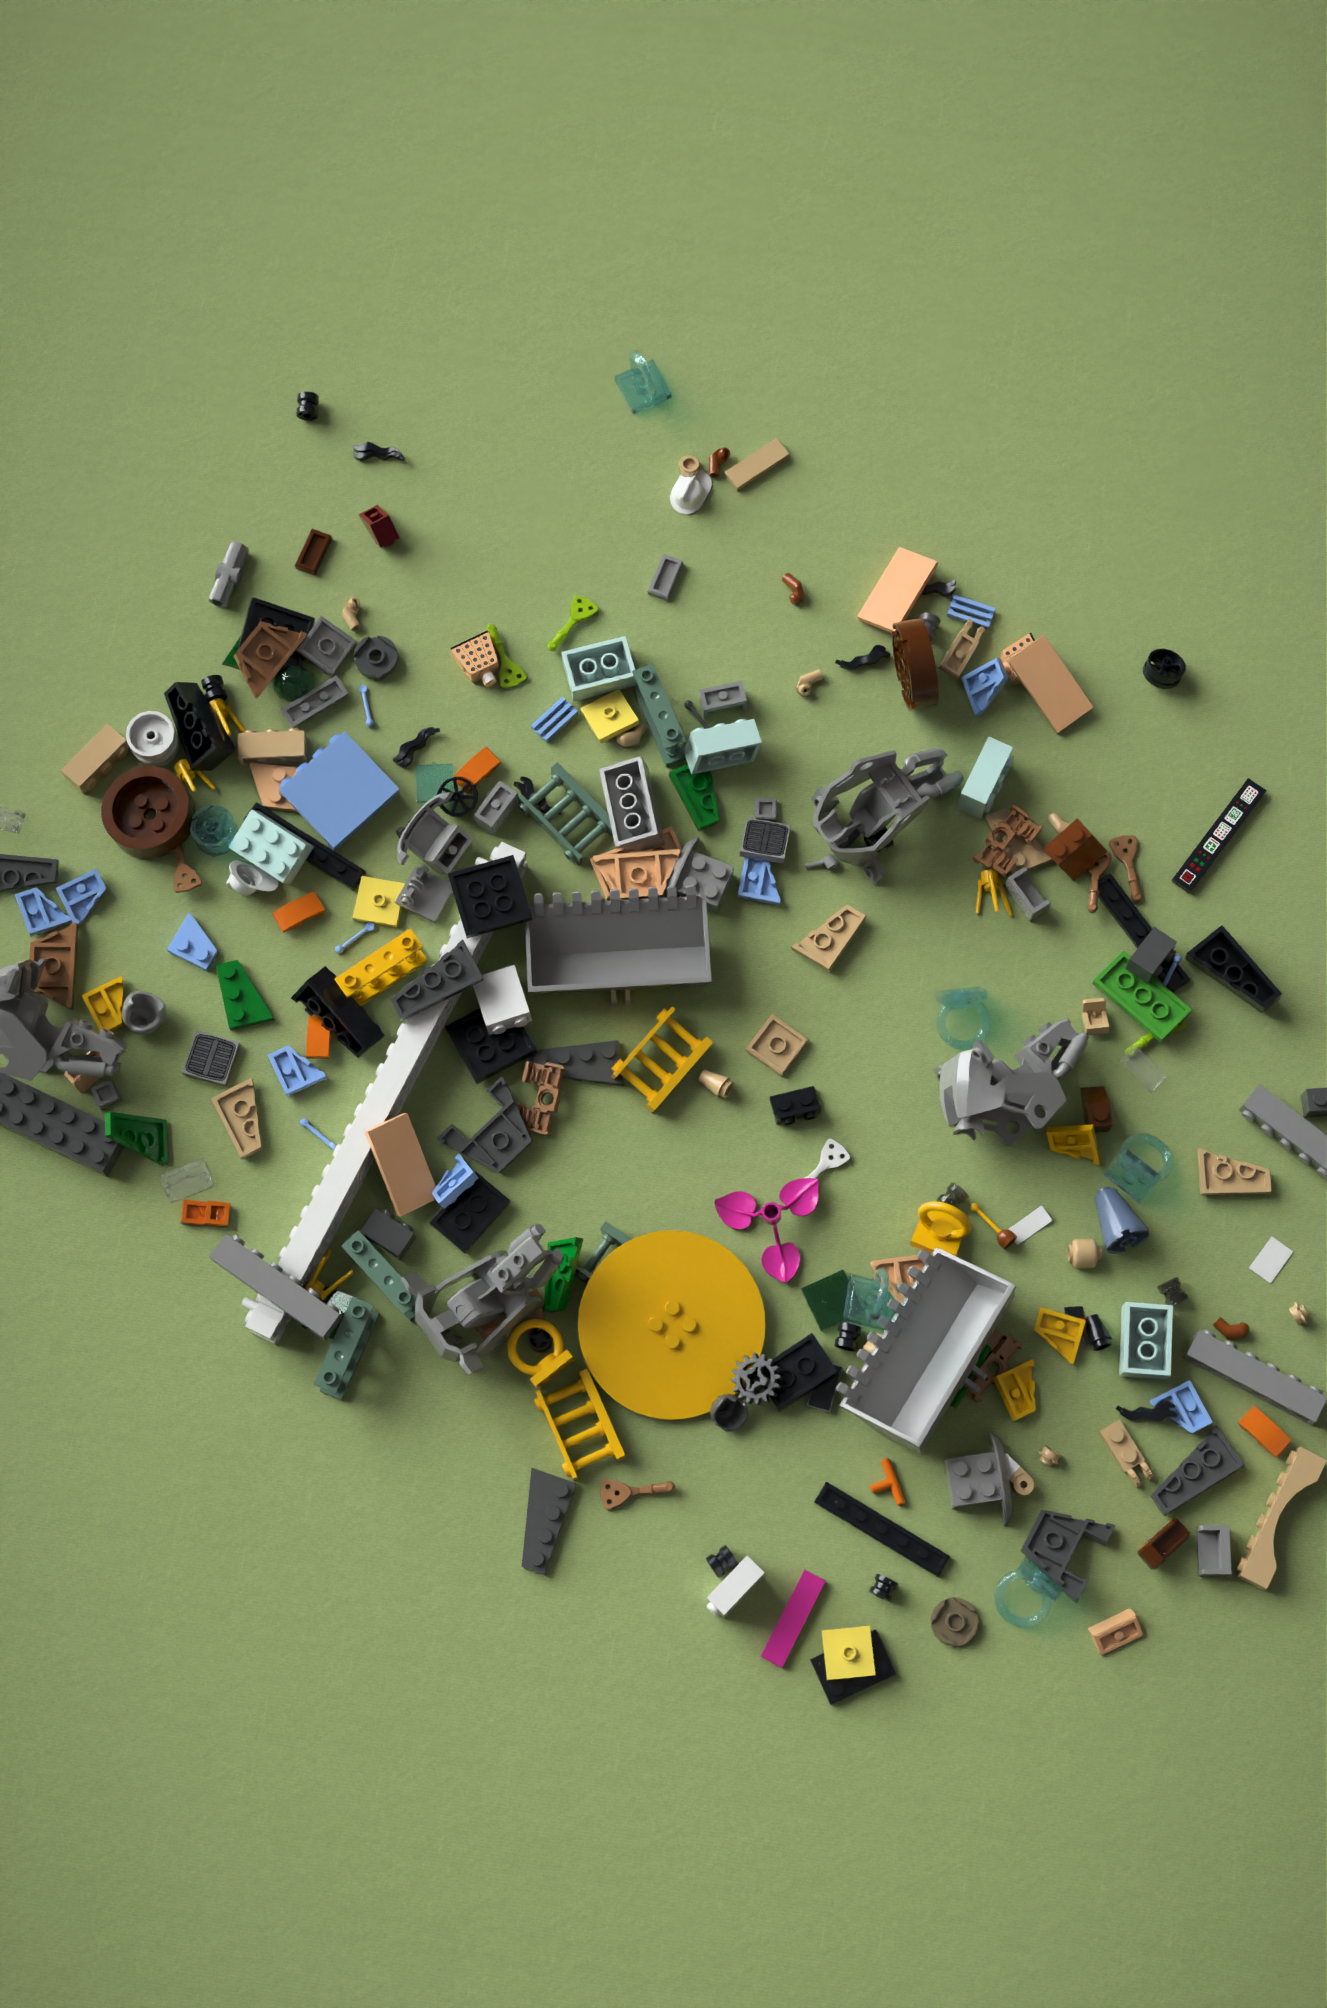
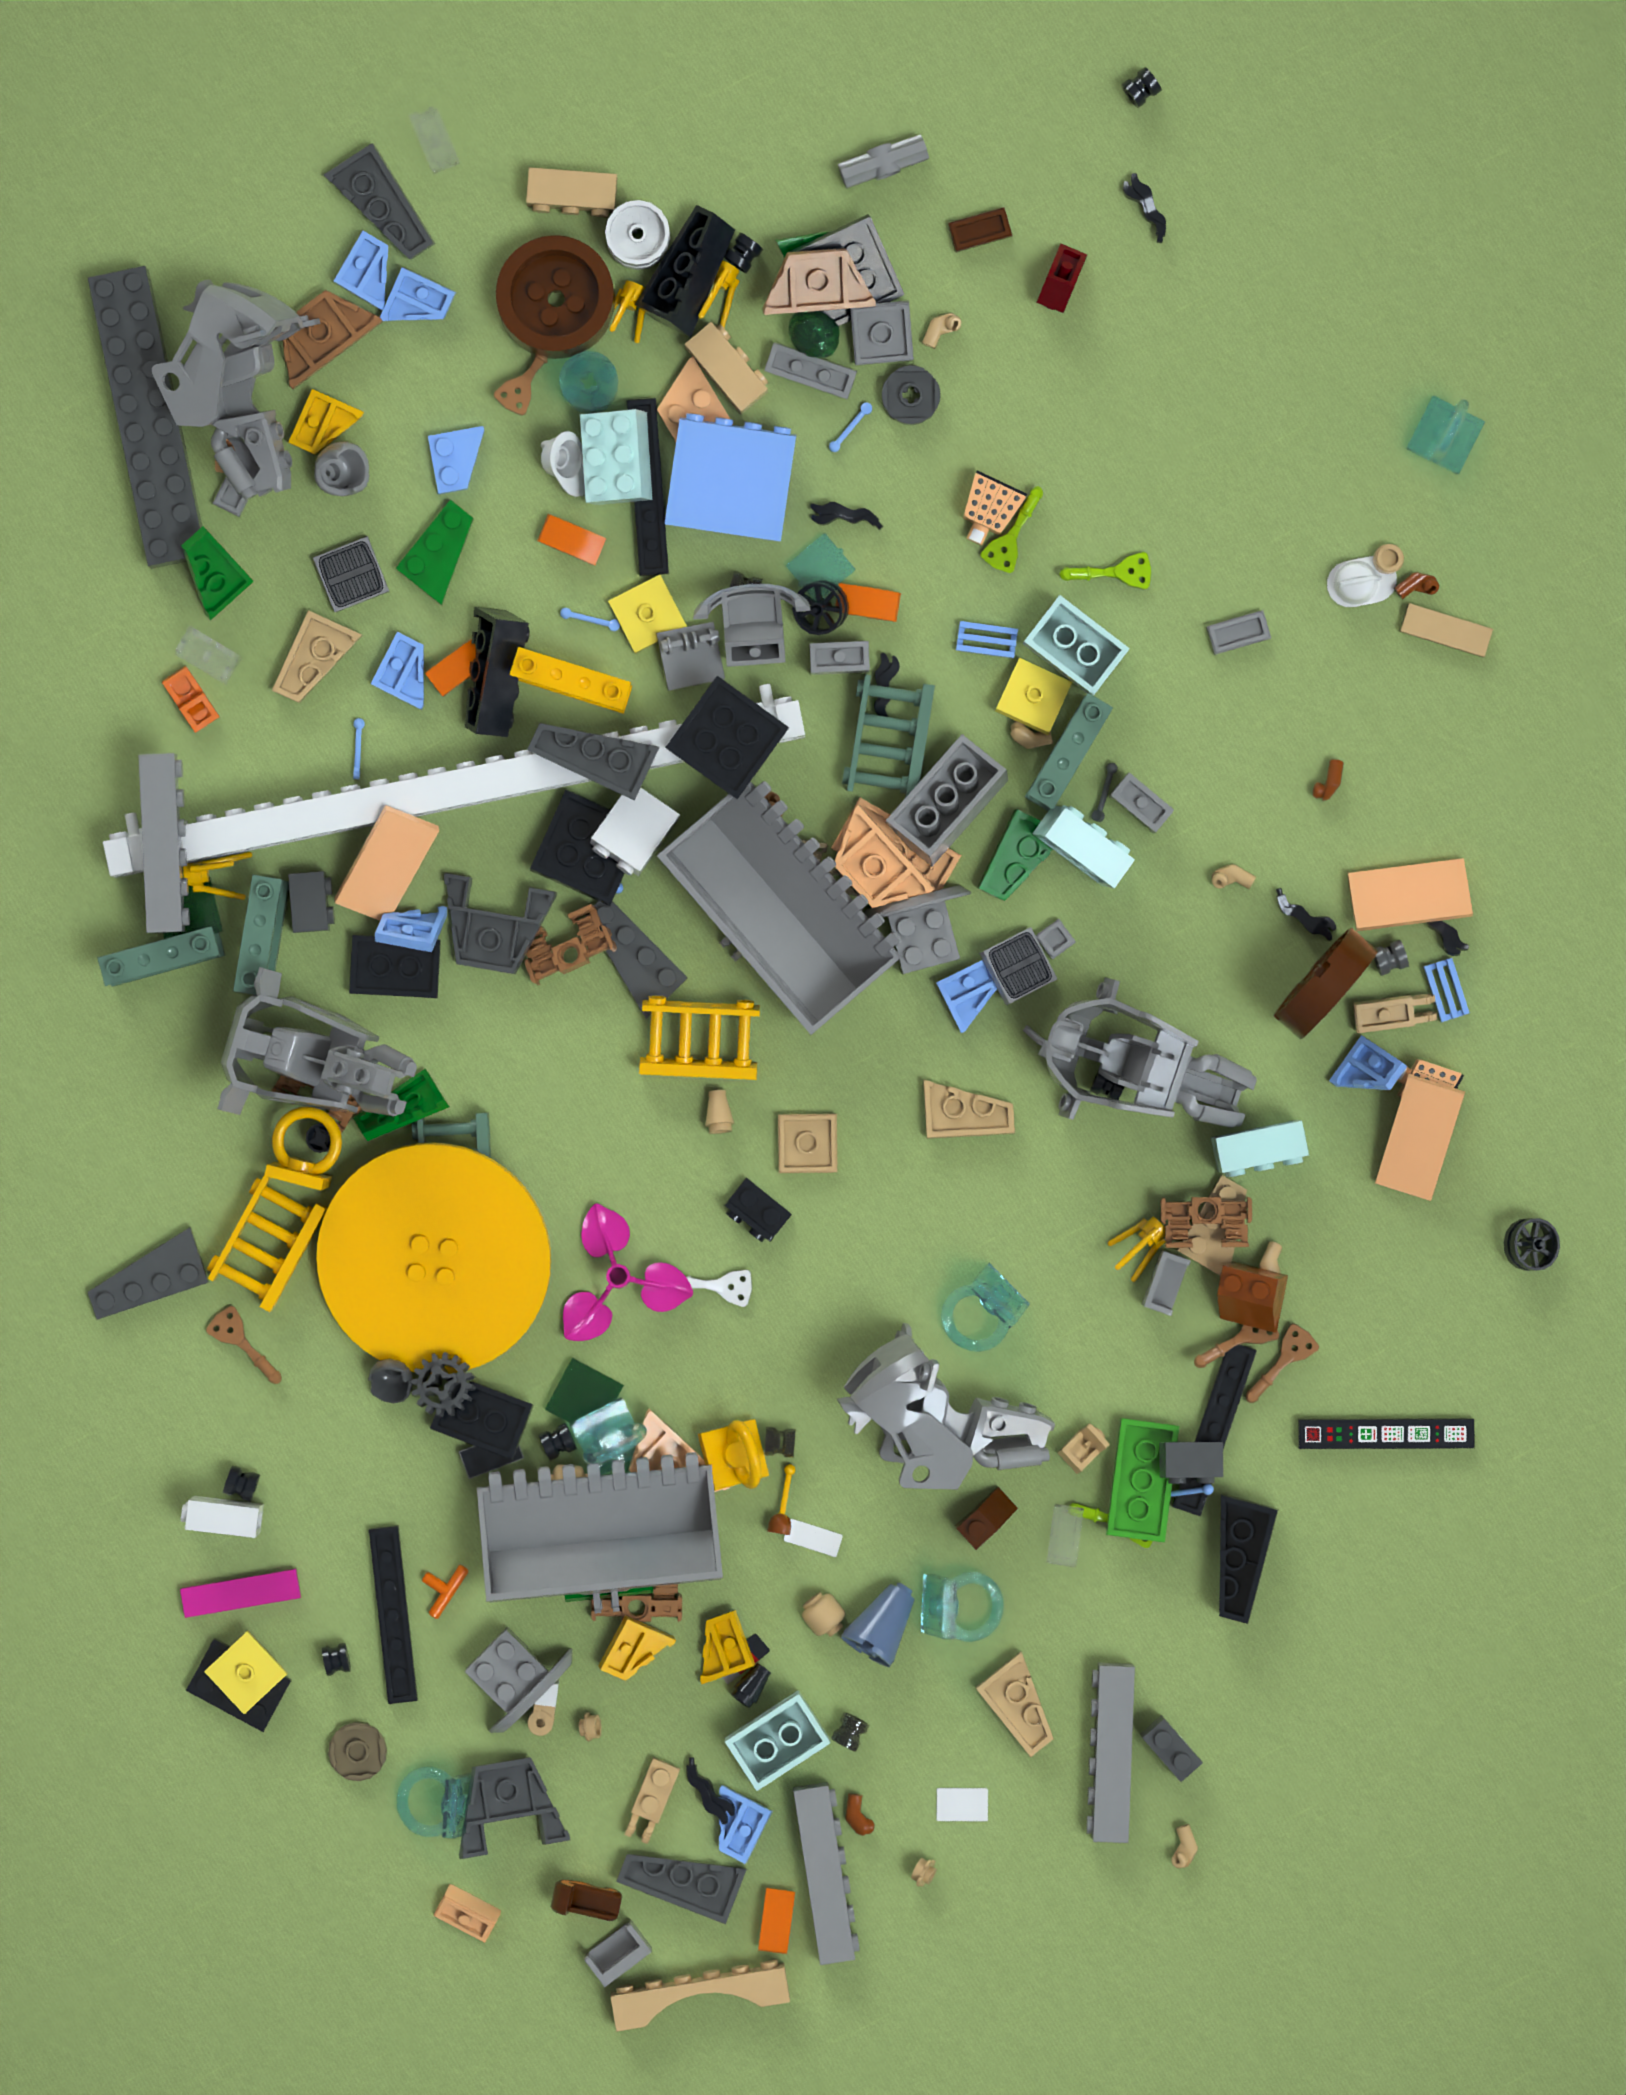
camera: 55 degrees right, 15 degrees up
(1074, 1141) = (932, 1522): yellow wing -> none

